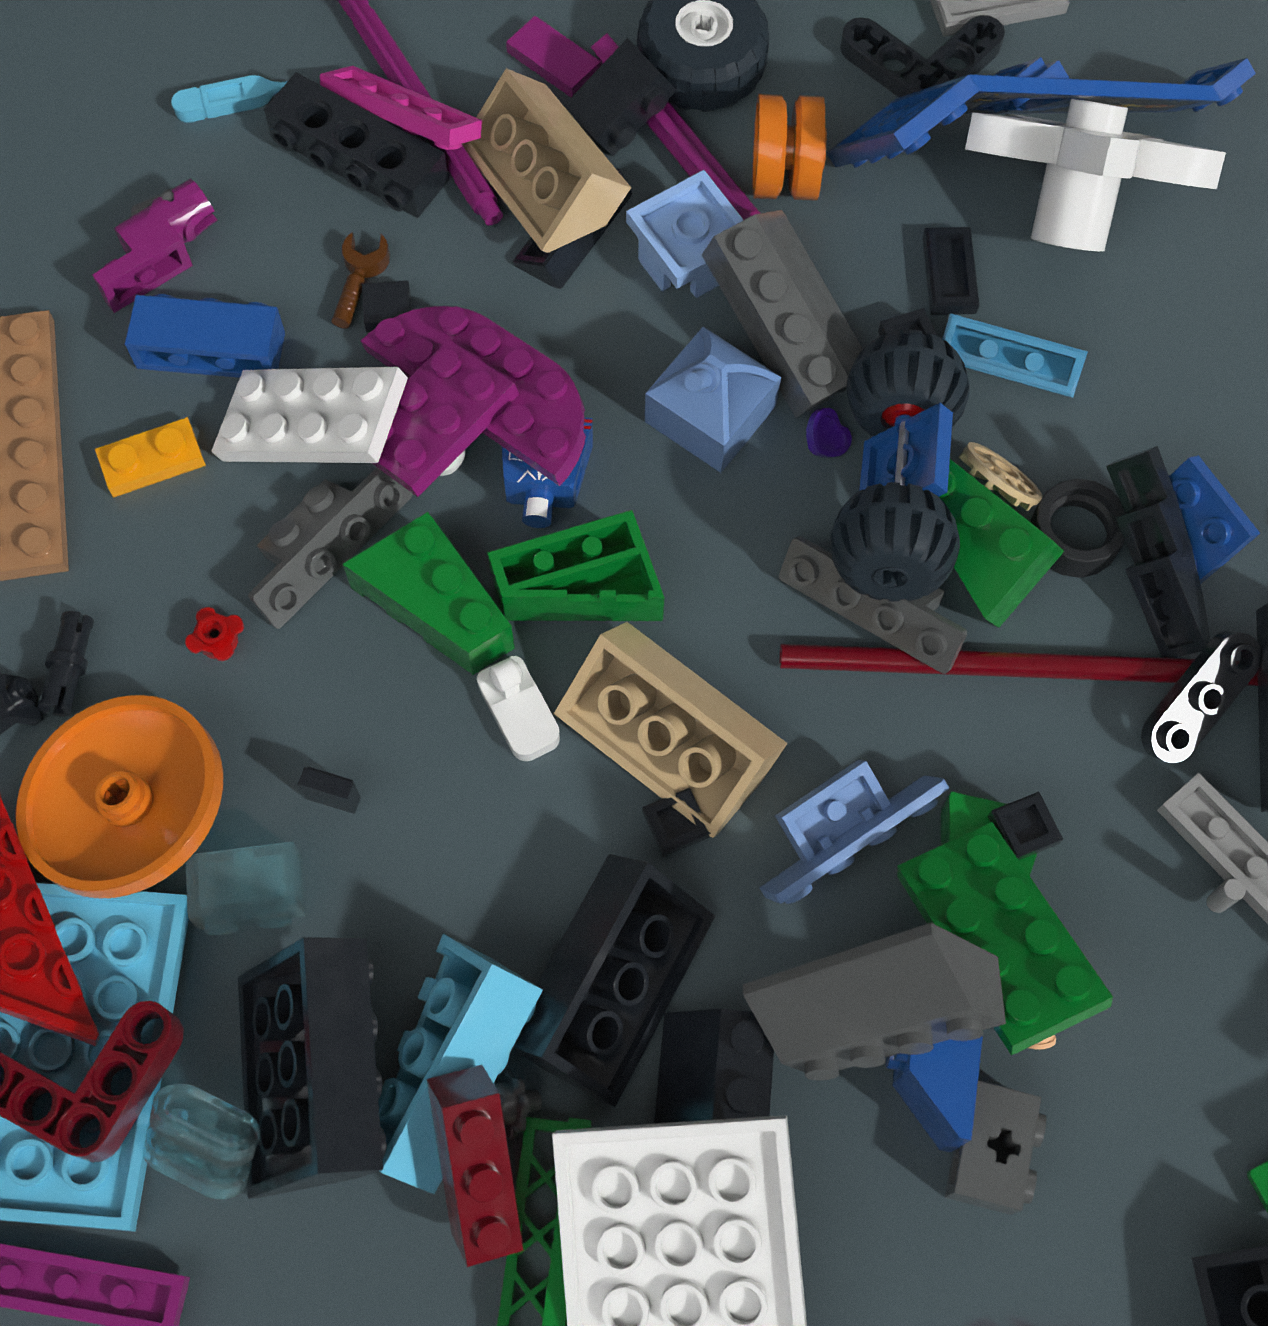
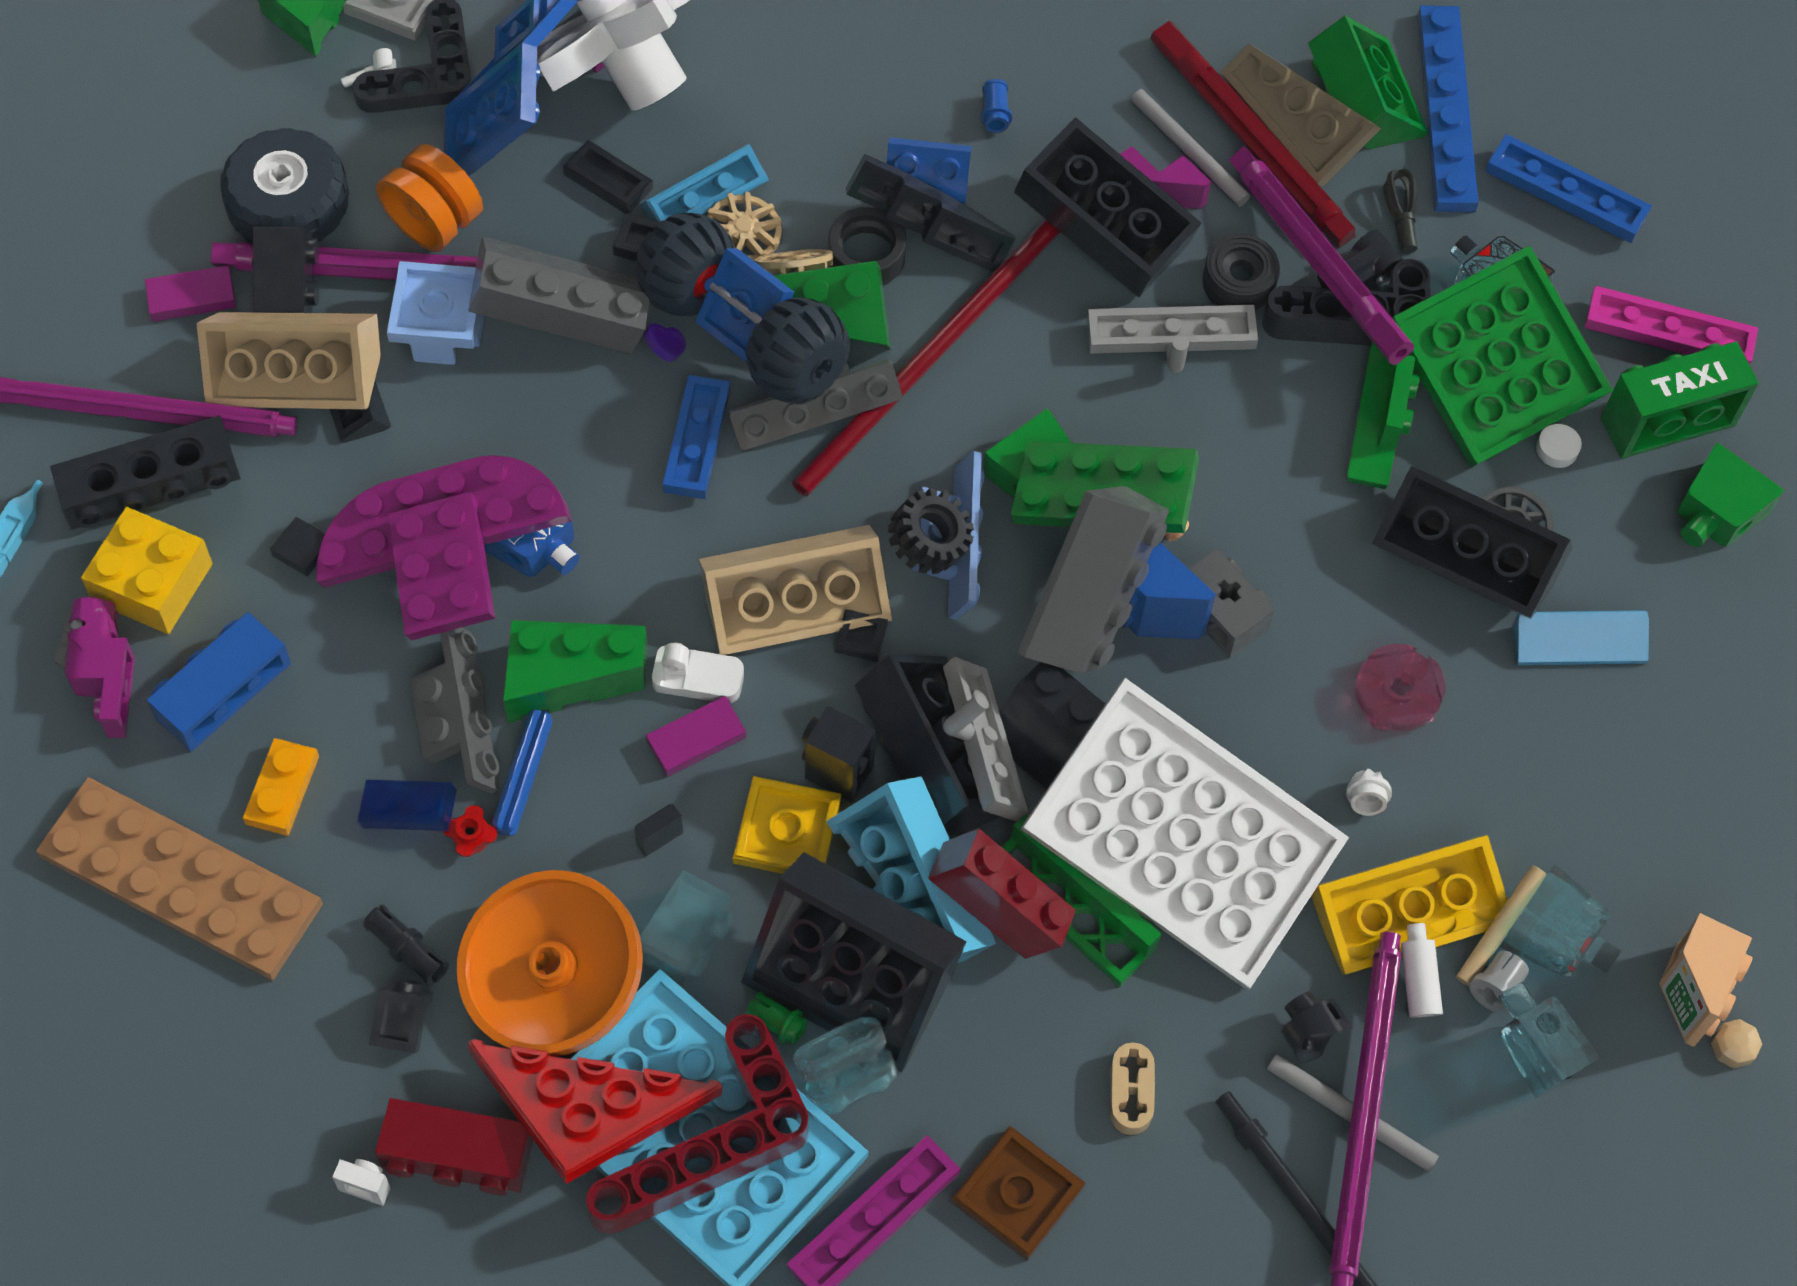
camera: 55 degrees left, 5 degrees down
(200, 566) = (407, 805): none -> clear blue plate
(216, 1041) = (778, 1019): none -> green pin
(264, 211) = (147, 569): none -> yellow brick
(305, 634) = (522, 772): none -> blue axle
(310, 415) = (360, 648): white plate -> none
(361, 267) = (251, 543): reddish brown piece -> none
(404, 107) = (159, 413): dark pink plate -> none
(420, 899) = (783, 823): none -> yellow tile
(455, 753) = (696, 736): none -> magenta tile
(517, 891) = (838, 753): none -> black brick
(579, 575) = (642, 559): green wedge -> none
(640, 1021) = (981, 728): none -> light grey plate
(711, 399) = (578, 390): medium blue piece -> none
(754, 529) = (696, 437): none -> blue plate
(849, 809) = (945, 517): none -> black tyre
(894, 24) = (381, 60): none -> white hand
(1003, 412) = (745, 225): none -> tan wheel
(1026, 826) = (1044, 423): black tile -> none
(1184, 706) = (1041, 268): black plate -> none

